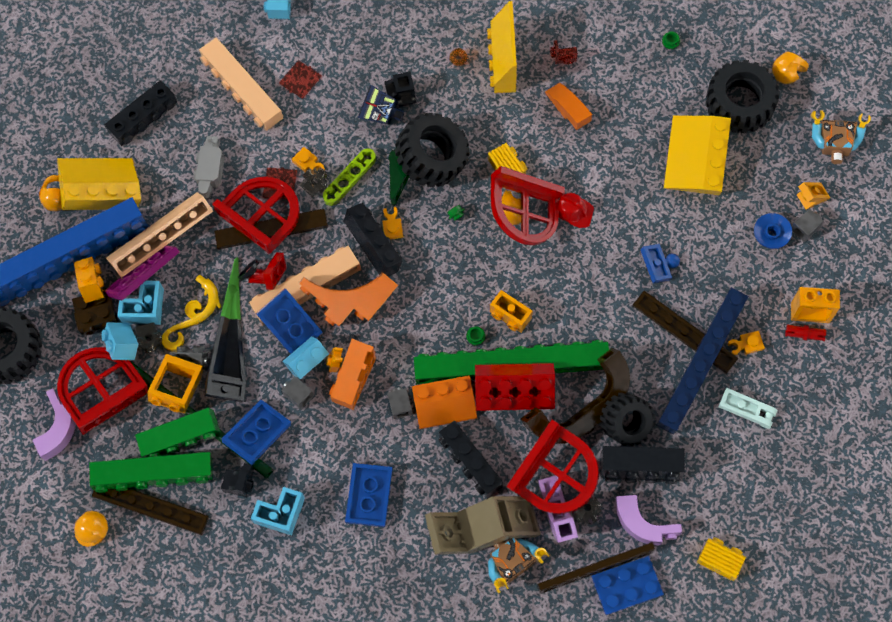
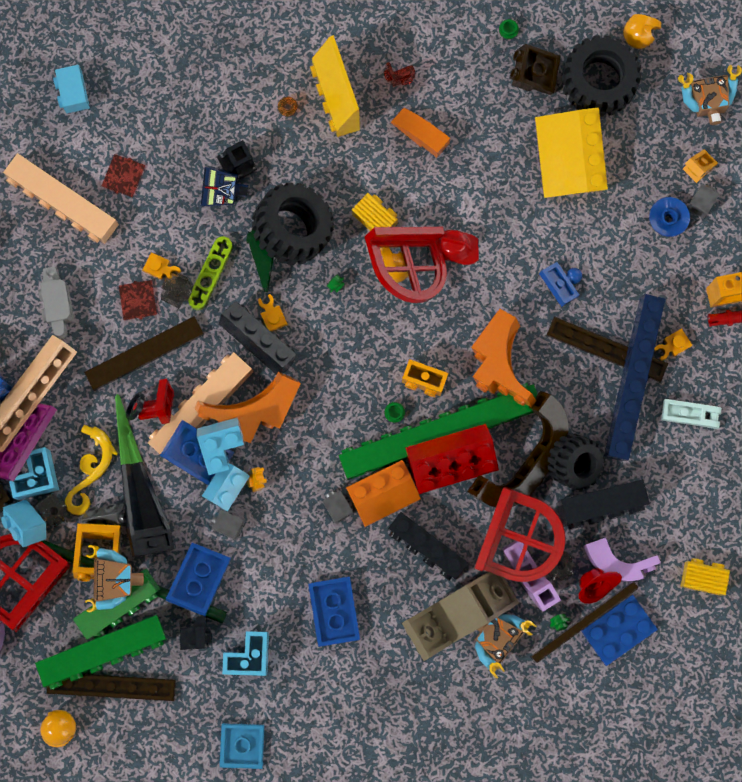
camera: 20 degrees left, 10 degrees up
(178, 406) = (111, 579): none -> torso
(246, 227) = (118, 358): red window -> none
(249, 592) = (242, 746): none -> dark azure tile
(305, 314) = (215, 441): none -> medium azure brick
(353, 374) = (280, 491): orange wedge -> none
(573, 562) = (559, 622): none -> green plate
(580, 307) = (494, 351): none -> orange arch
(617, 536) = (596, 585): none -> red piece
(685, 78) = (535, 69): none -> dark brown plate

